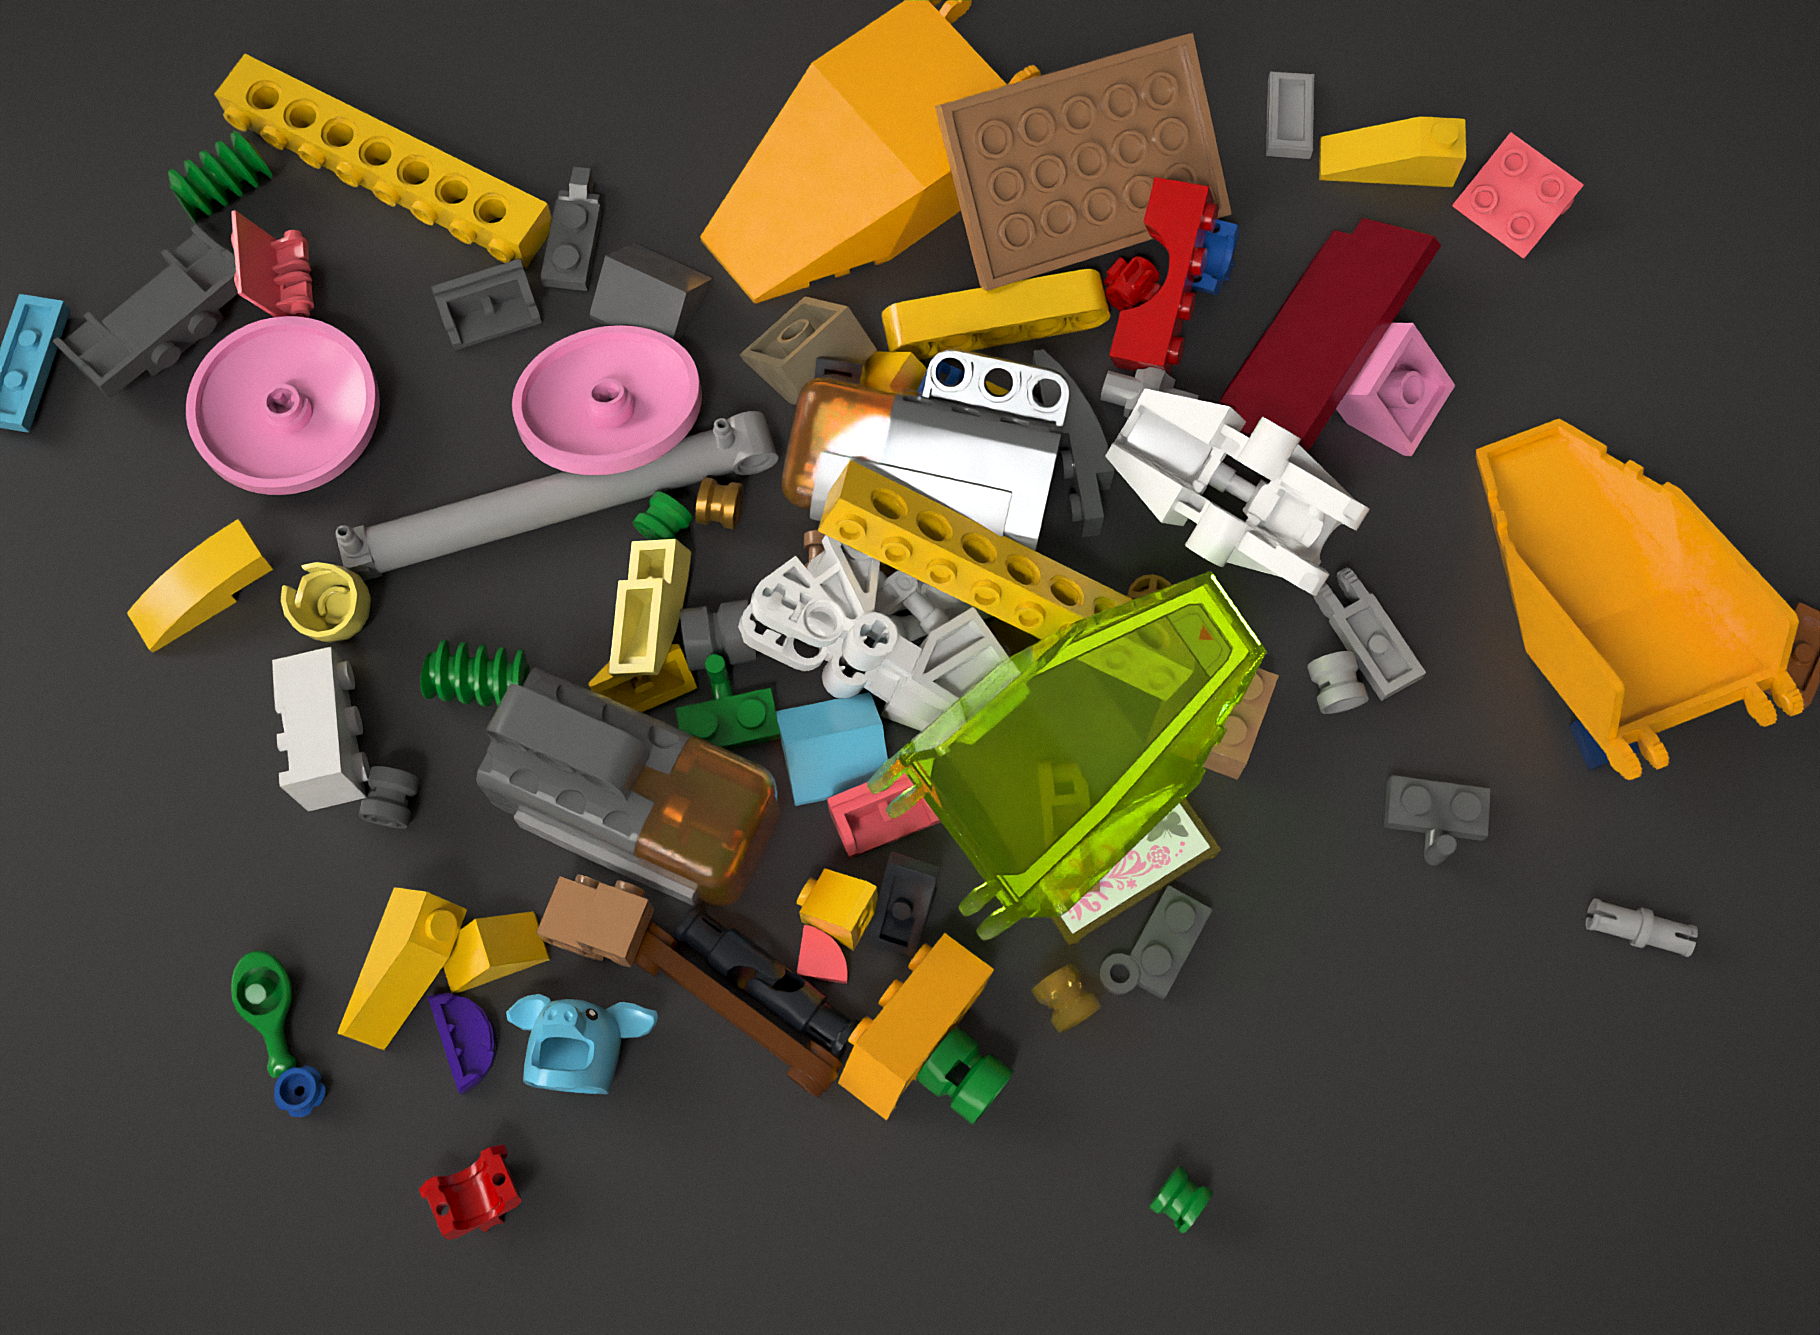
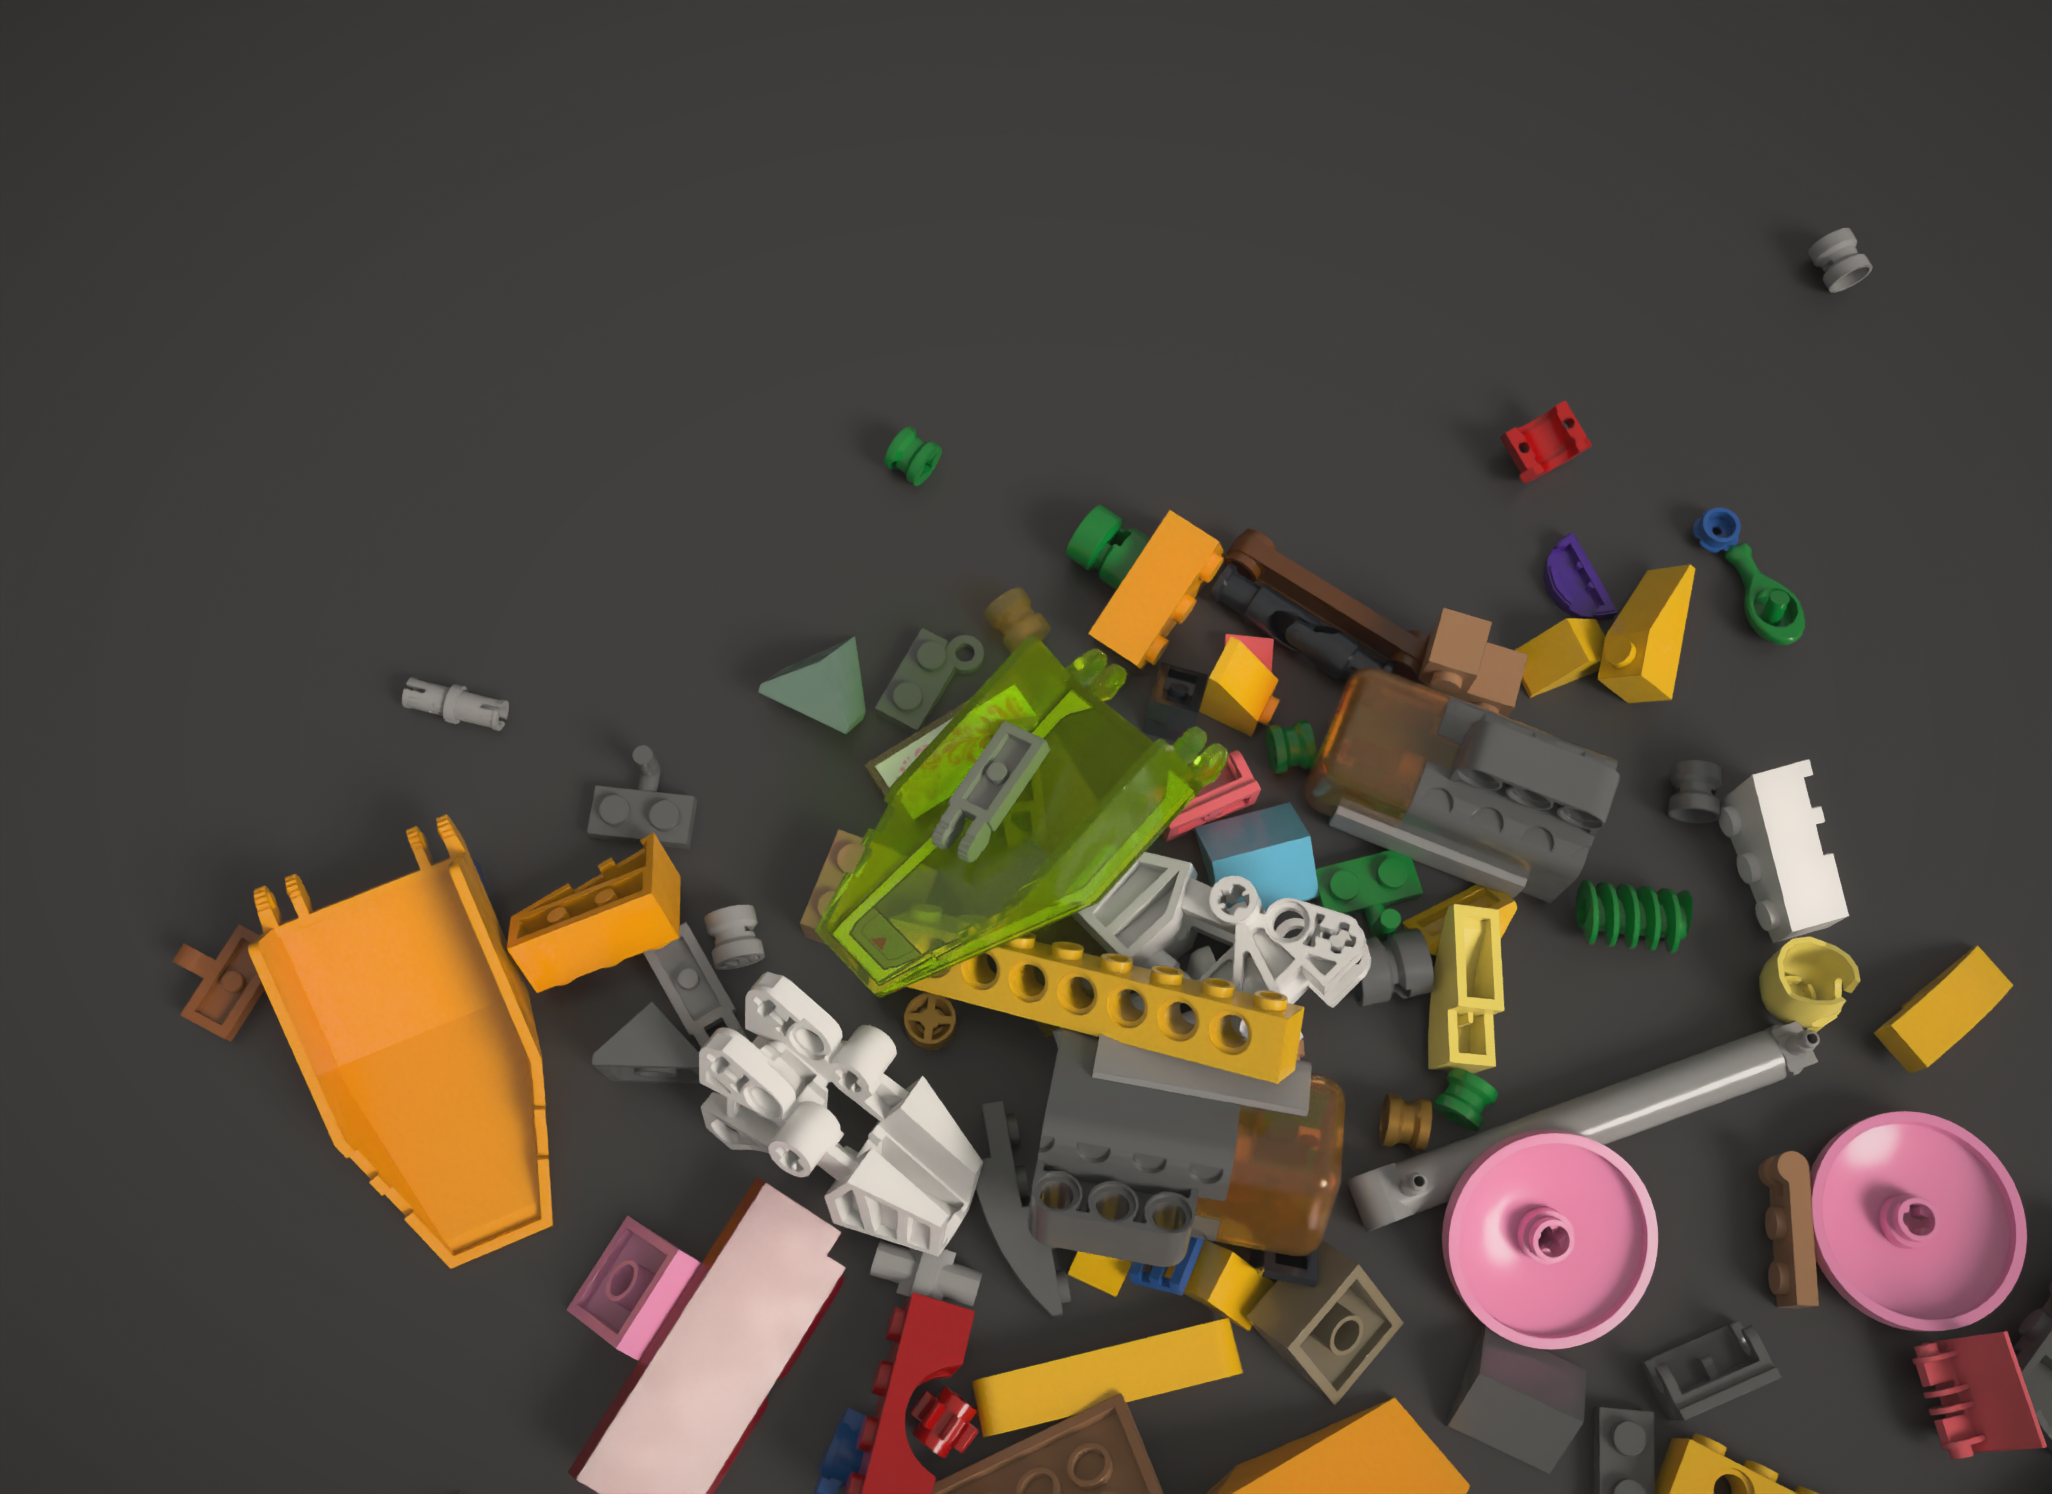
camera: 175 degrees right, 0 degrees up
(392, 406) = (1790, 1226): none -> medium nougat plate
(576, 1041) = (1474, 566): medium azure piece -> none
(790, 854) = (1290, 746): none -> green wheel
(1098, 787) = (990, 790): none -> light grey hinge
(1268, 934) = (823, 686): none -> sand green slope
(1400, 564) = (648, 1051): none -> dark grey slope
(1463, 692) = (600, 922): none -> light orange wedge

